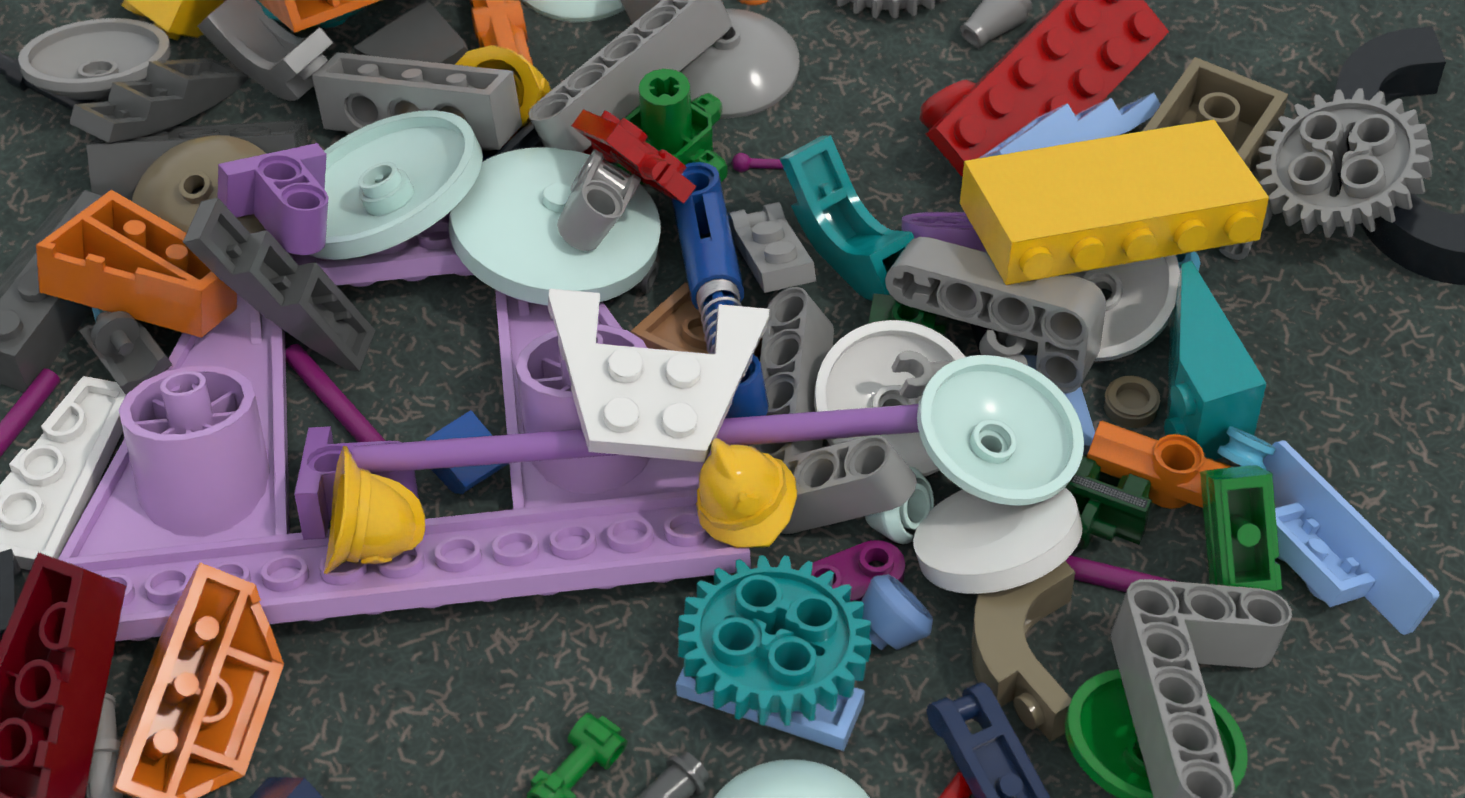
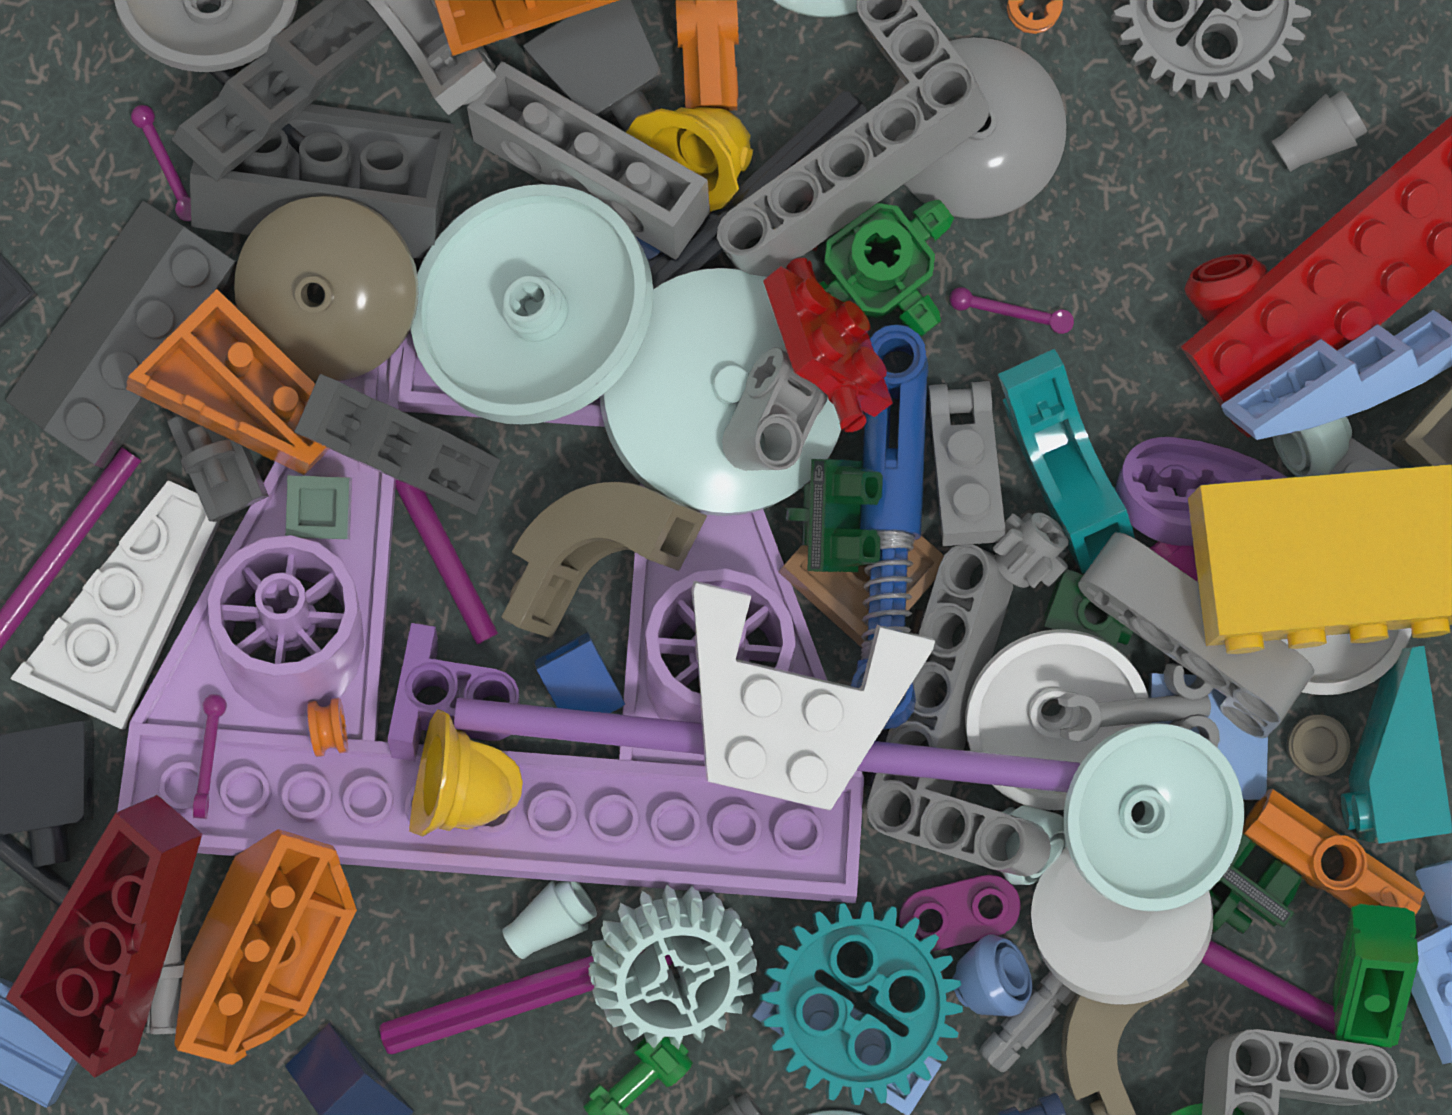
camera: 10 degrees right, 35 degrees up
(50, 160) = (143, 117): none -> magenta hinge
(135, 530) = (213, 707): none -> magenta hinge
(217, 348) = (318, 507): none -> sand green plate
(240, 515) = (327, 727): none -> orange bush
(283, 193) = (414, 358): medium lavender tile -> none
(455, 716) = (488, 1006): none -> magenta axle
(459, 332) = (583, 530): none -> dark tan arch
(470, 644) = (551, 917): none -> light aqua cone
(577, 621) = (641, 988): none -> light aqua gear
(662, 280) = (833, 515): none -> dark green hips
(744, 495) = (869, 833): yellow piece -> none
(841, 287) = (1032, 550): none -> light grey gear
(937, 650) = (1028, 1025): none -> light grey axle
(1245, 448) = (1415, 867): medium azure bush -> none

